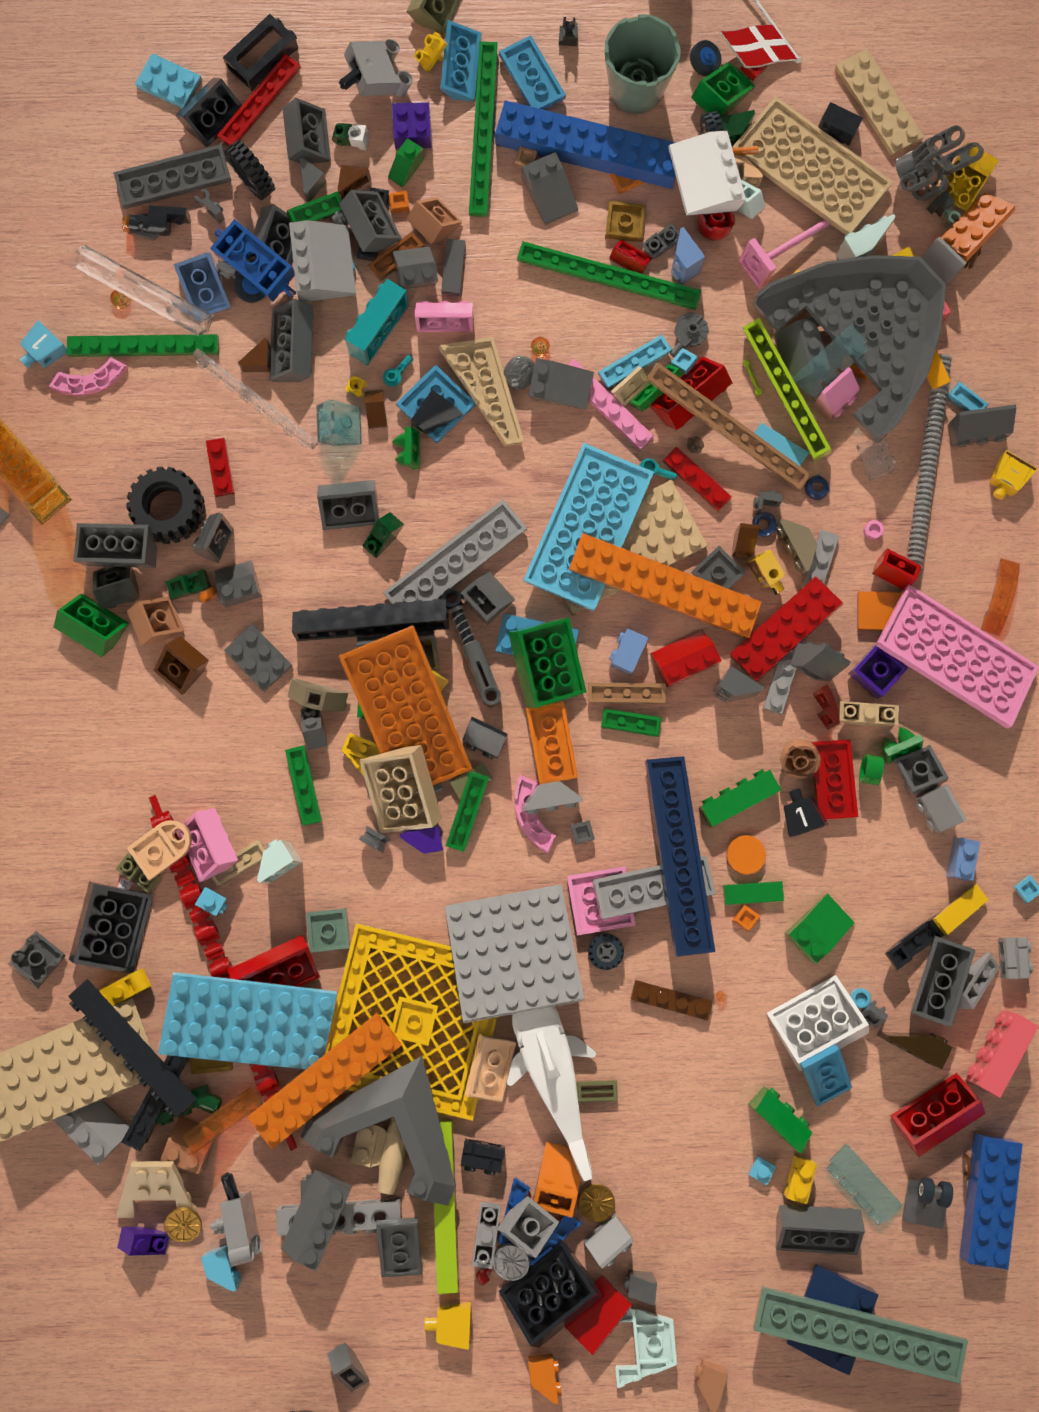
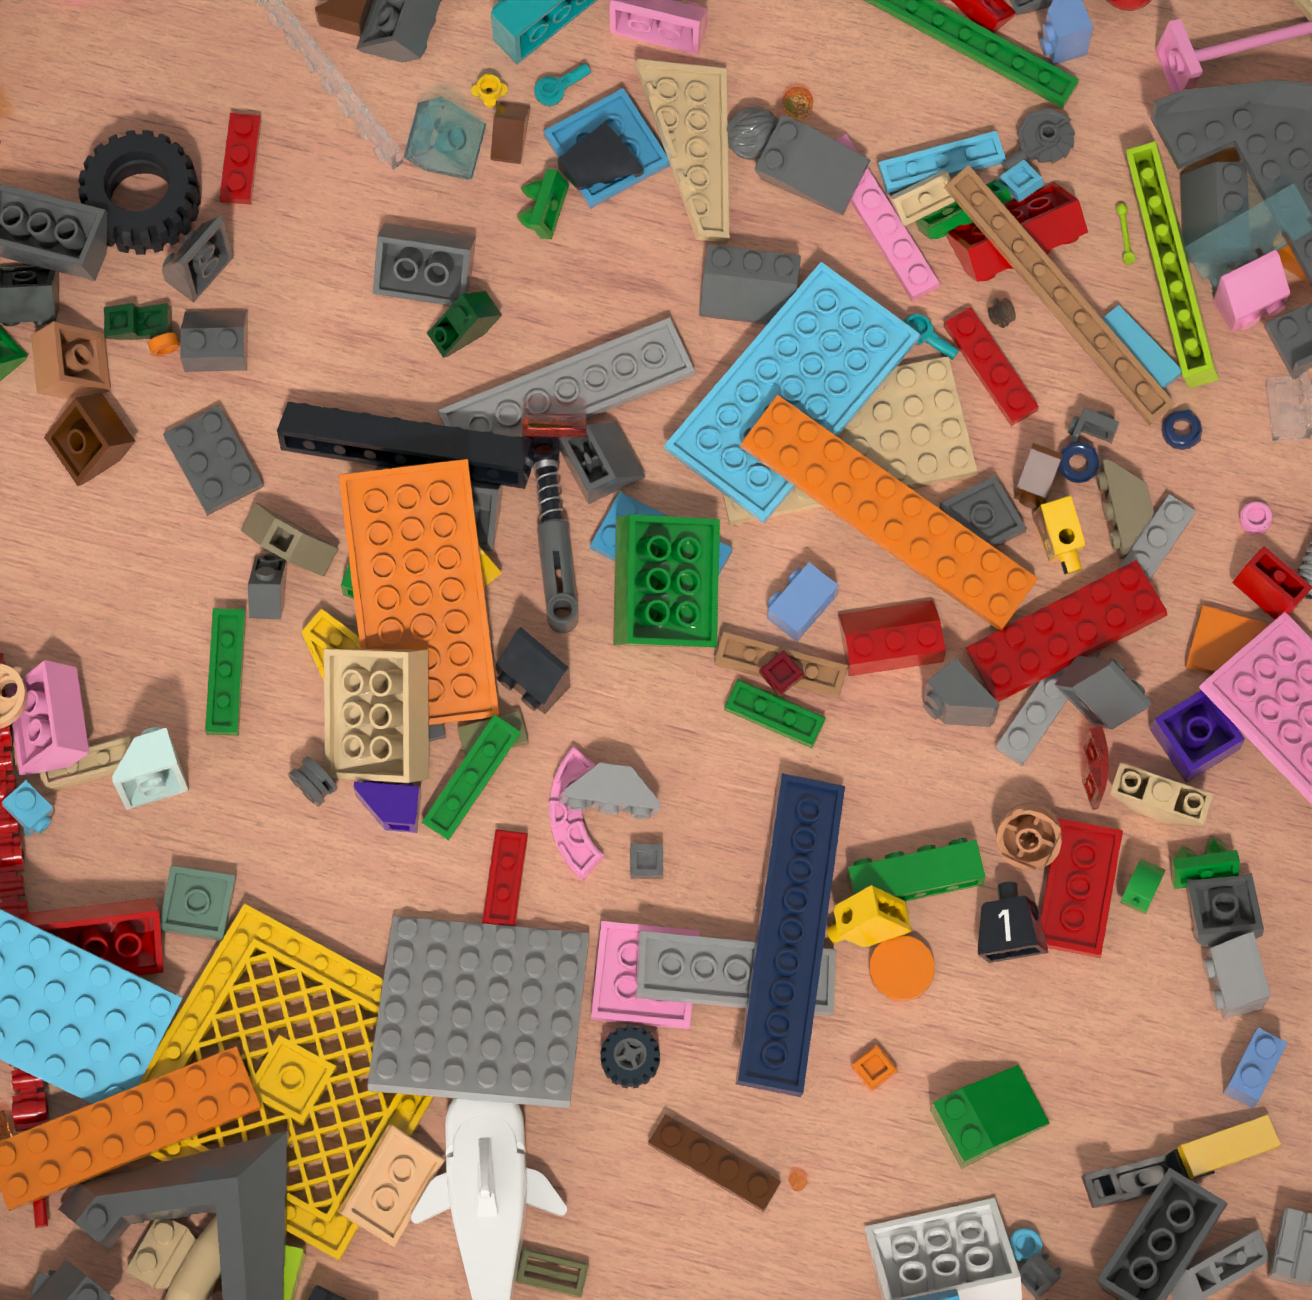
camera: 20 degrees right, 10 degrees down
(455, 585) = (554, 425): none -> clear red slope
(503, 865) = (505, 878): none -> red tile
(543, 466) = (747, 283): none -> dark grey slope
(551, 743) = (638, 708): orange plate -> none
(629, 699) = (781, 673): none -> dark red tile
(721, 833) = (869, 918): none -> yellow torso
(753, 893) = (896, 1031): green tile -> none

